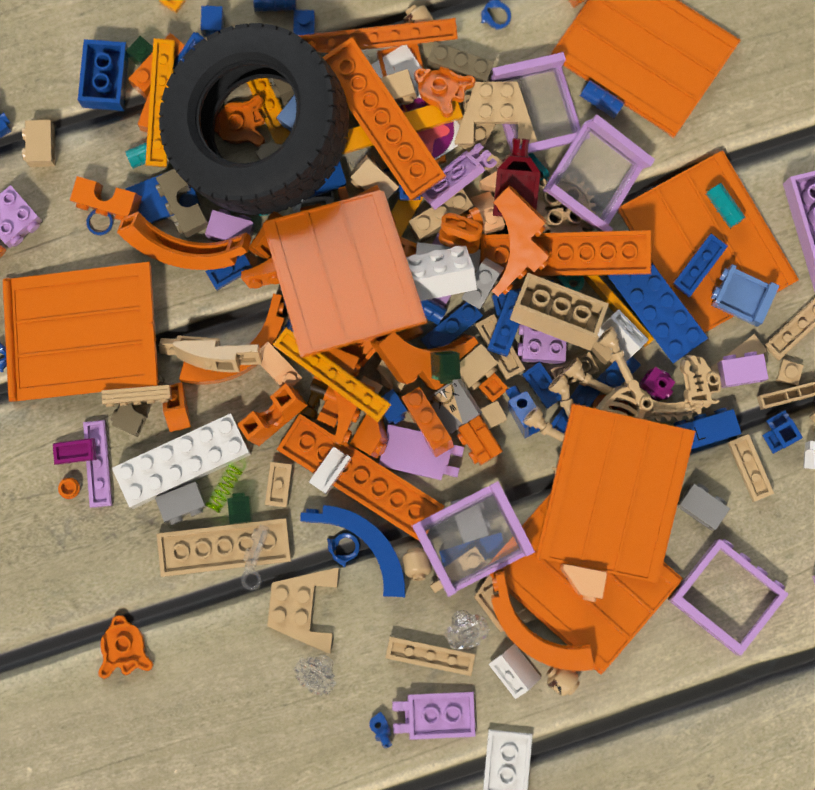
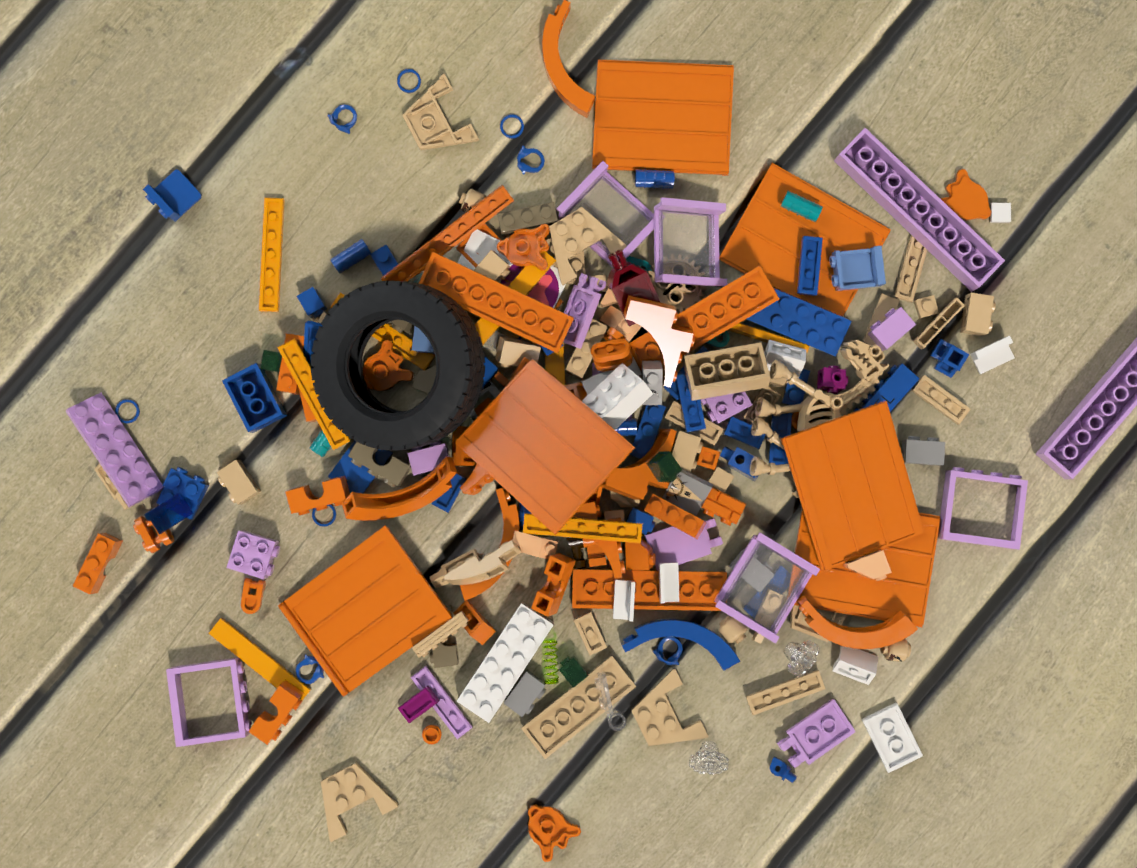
camera: 25 degrees left, 5 degrees up
(382, 480) = (668, 582): none -> white panel

